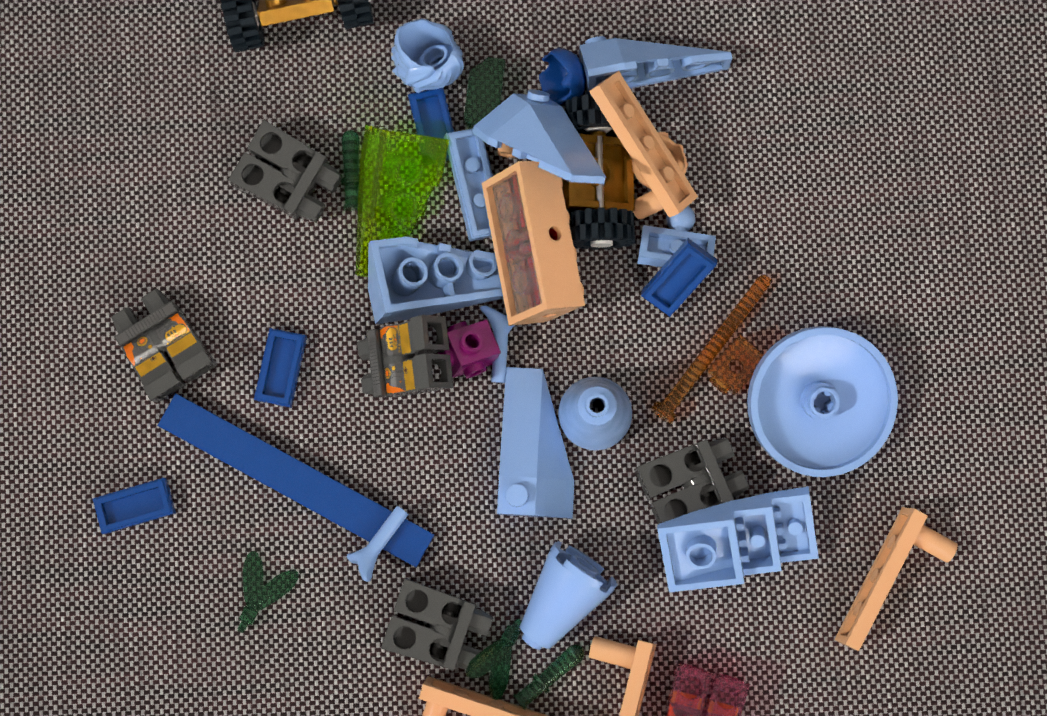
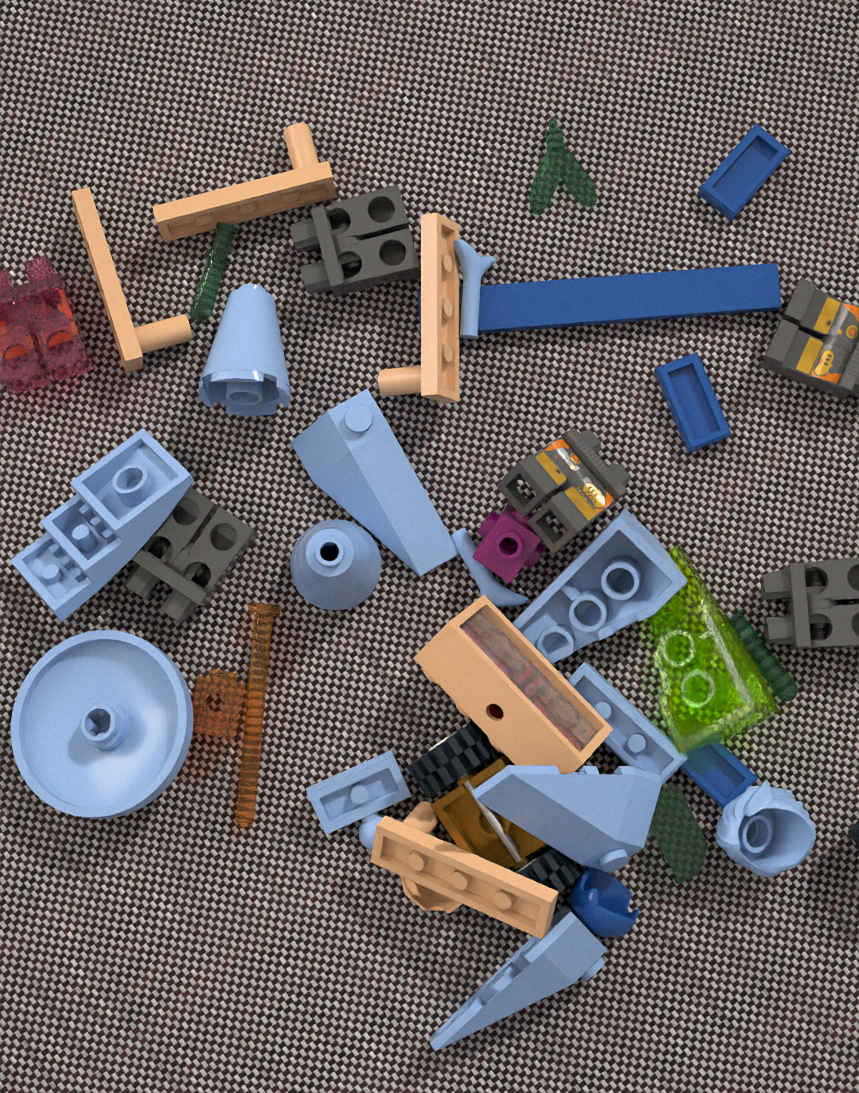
camera: 140 degrees right, 0 degrees up
(440, 494) = (439, 368): none -> light nougat piece
(497, 659) = (276, 250): clear green piece -> none
(679, 277) = (335, 761): blue tile -> none

